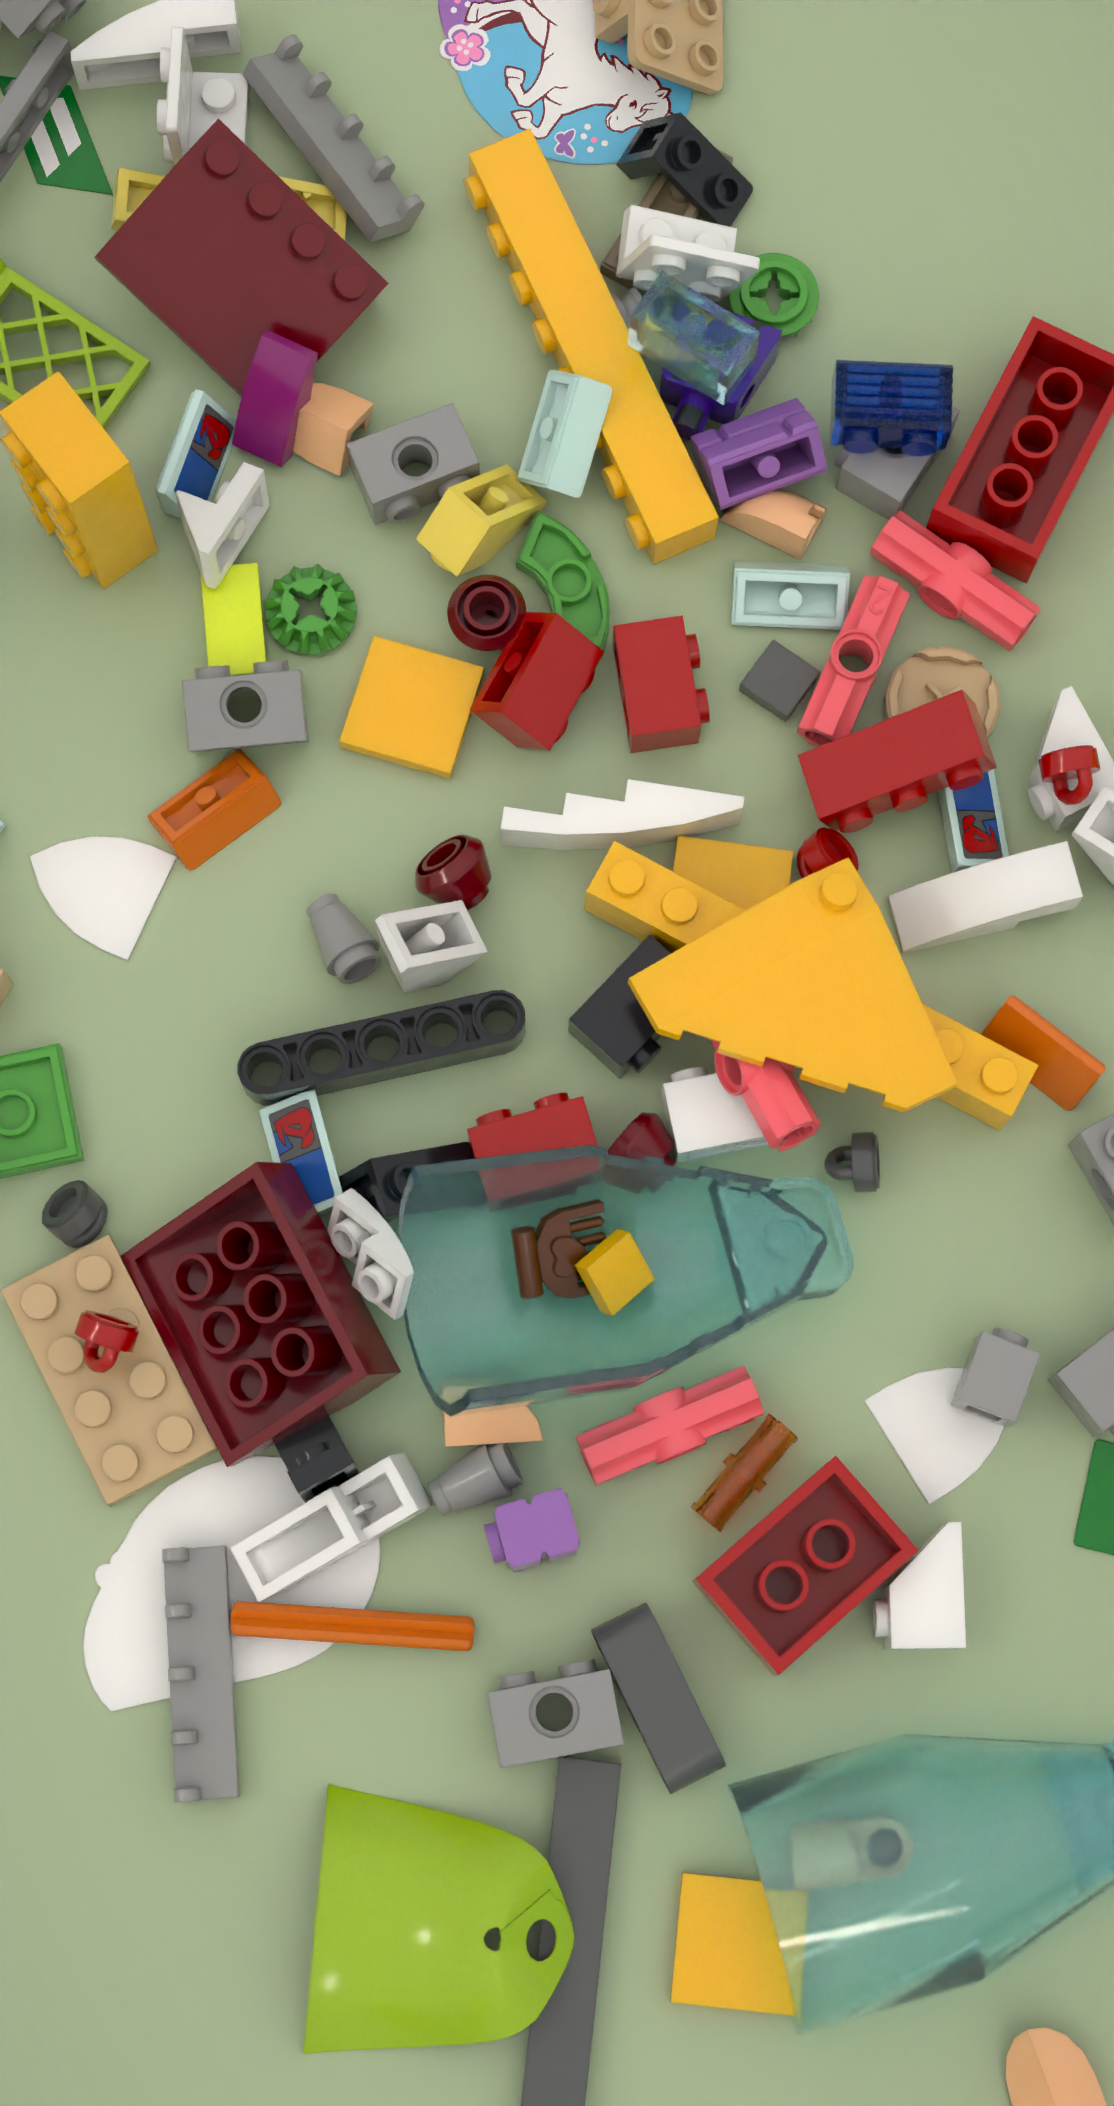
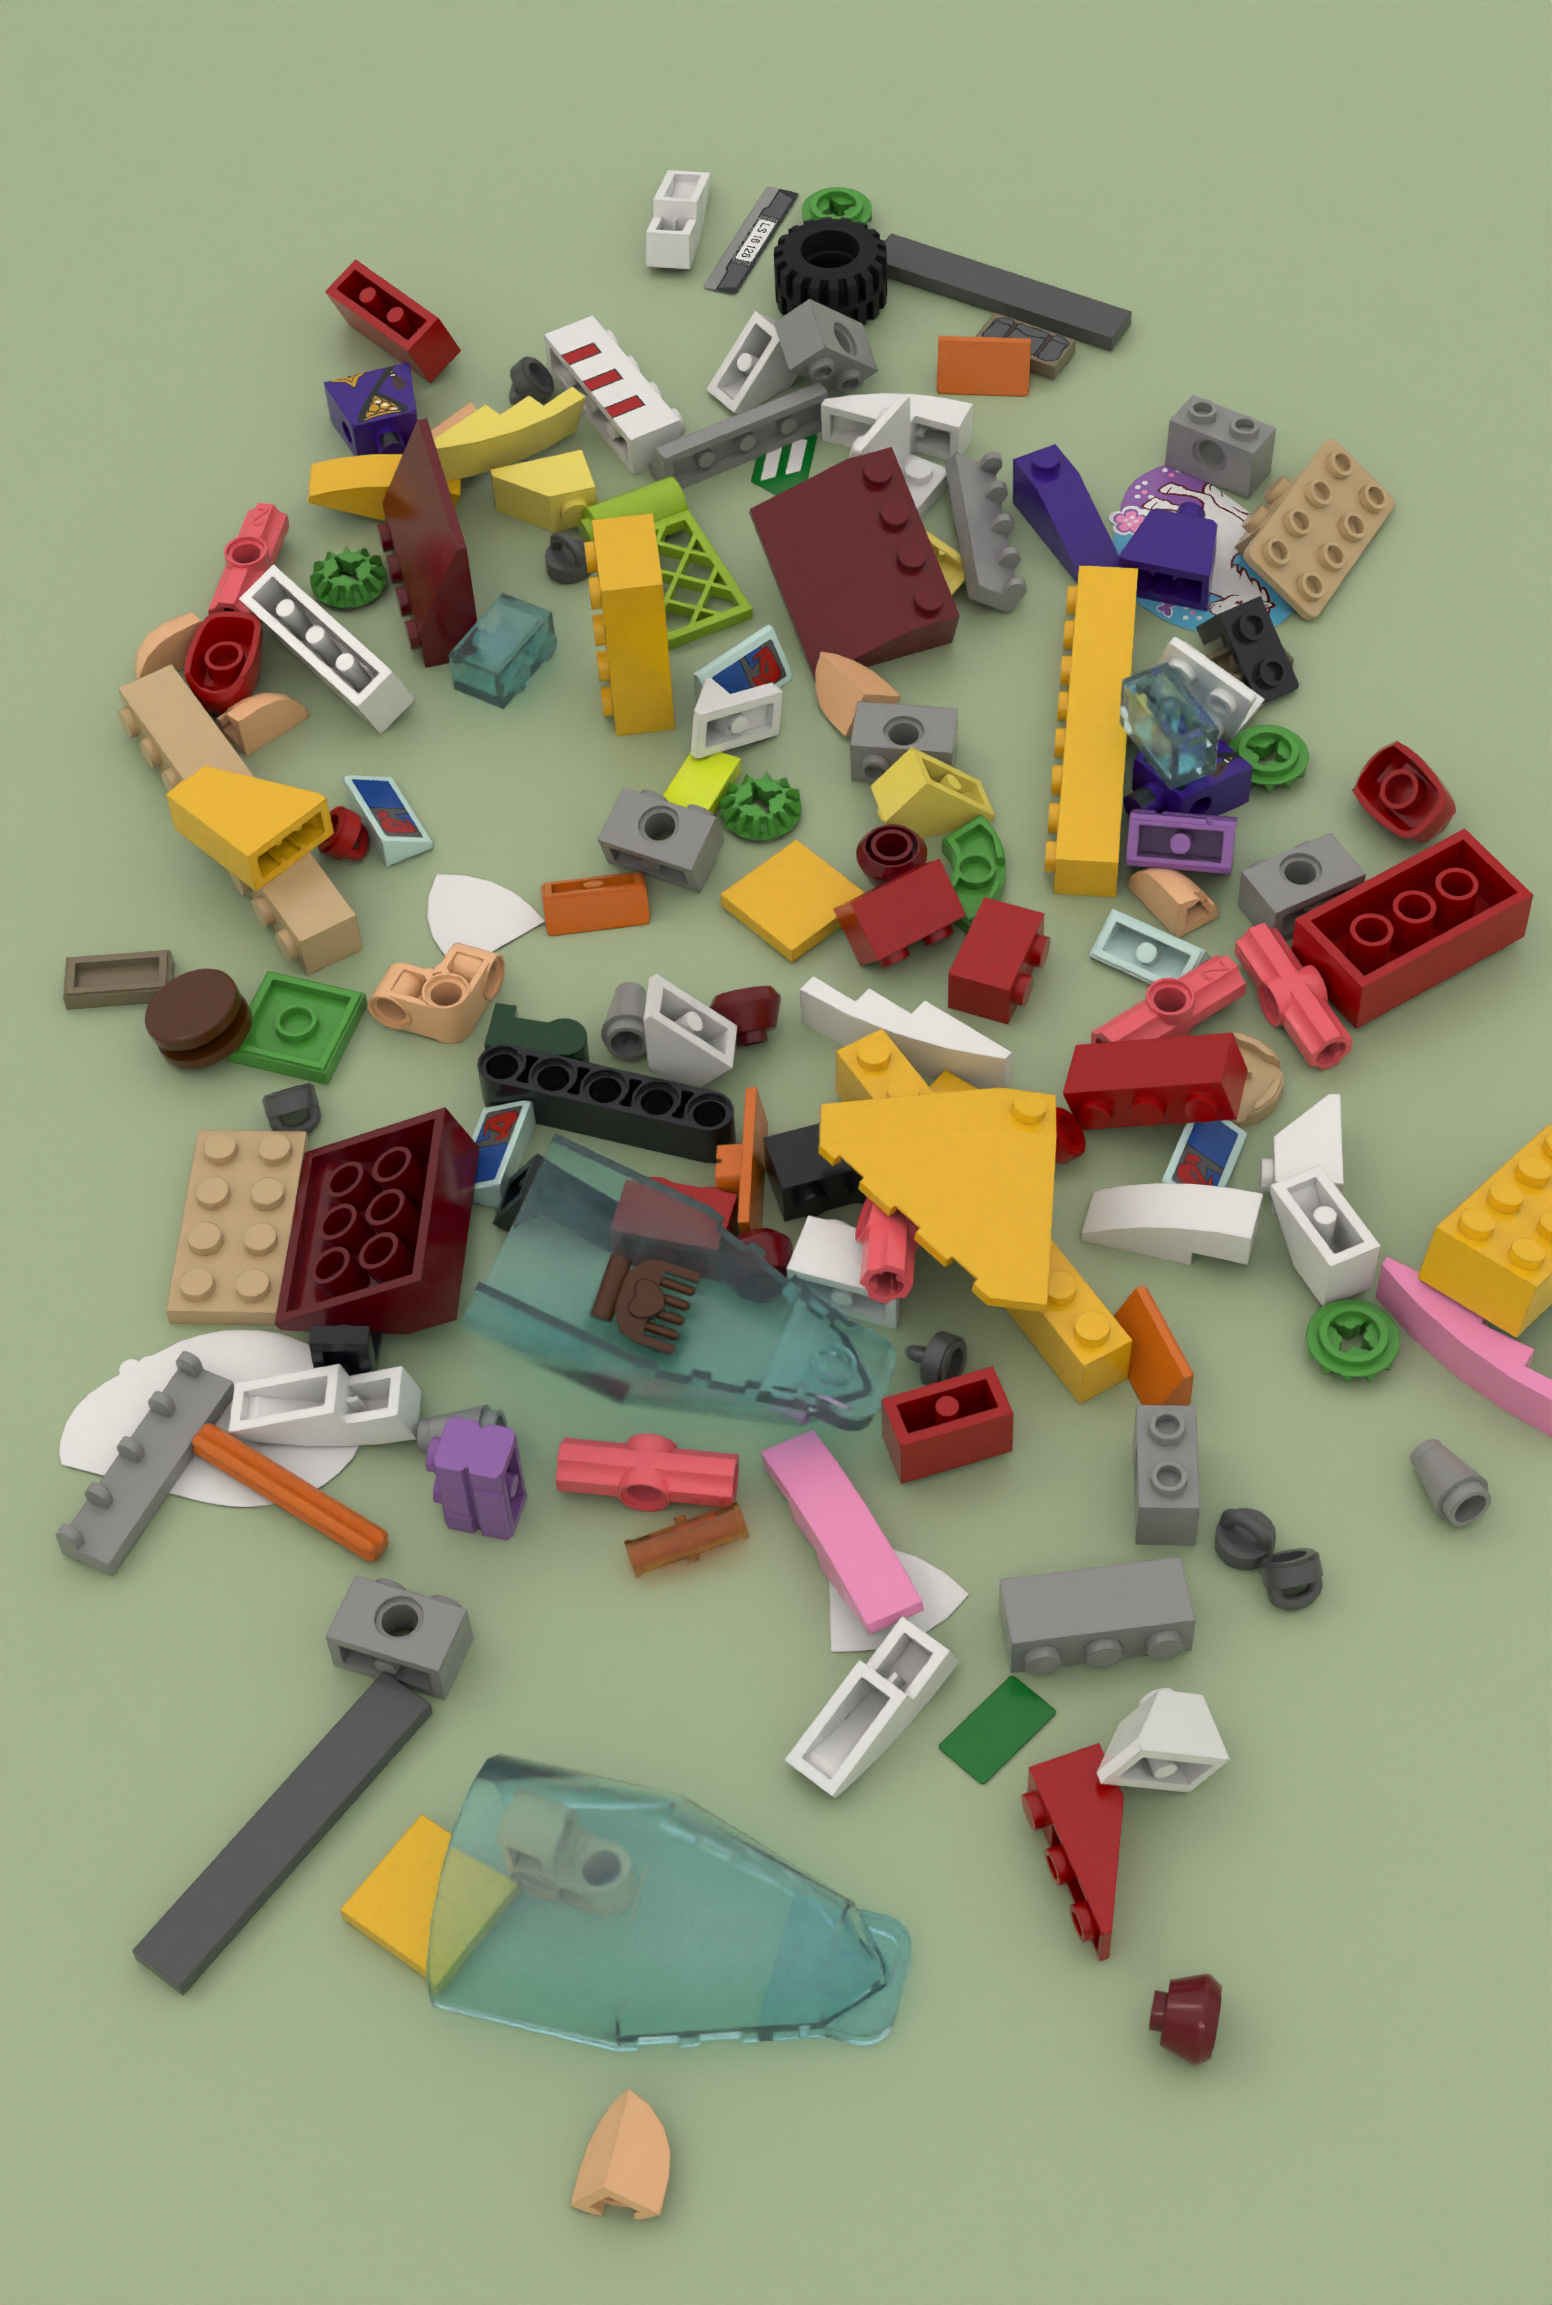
camera: 35 degrees right, 25 degrees down
(106, 1331) = (249, 1179): red tile -> none
(113, 1025) = (441, 1000): none -> light nougat piece
(273, 396) = (828, 646): magenta slope -> none
(294, 1009) = (557, 1037): none -> dark green leg
(367, 1240) = (490, 1221): white slope -> none
(405, 83) = (1061, 510): none -> dark purple slope
(407, 1924) = (143, 1734): lime piece -> none
(492, 1427) = (500, 1381): light nougat brick -> none
(550, 82) = (1174, 556): none -> dark purple torso
(559, 1057) = (742, 1165): none -> orange piece
(565, 433) = (1034, 764): light aqua slope -> none
(614, 1272) = (678, 1332): yellow tile -> none
(658, 1698) = (495, 1669): dark grey beam -> none
(779, 680) = (1098, 1002): dark grey tile -> none
(805, 1566) = (685, 1621): red brick -> none
(880, 1391) = (842, 1532): none -> bright pink slope
(891, 406) = (1304, 837): clear blue brick -> none
(915, 1235) = (947, 1424): none -> red brick
(926, 1597) = (775, 1705): white slope -> none
(935, 285) = (1404, 794): none -> red piece
(996, 1376) = (950, 1568): light grey brick -> none
(1007, 1548) = (872, 1708): none -> white slope
(1070, 764) = (1295, 1137): red tile -> none

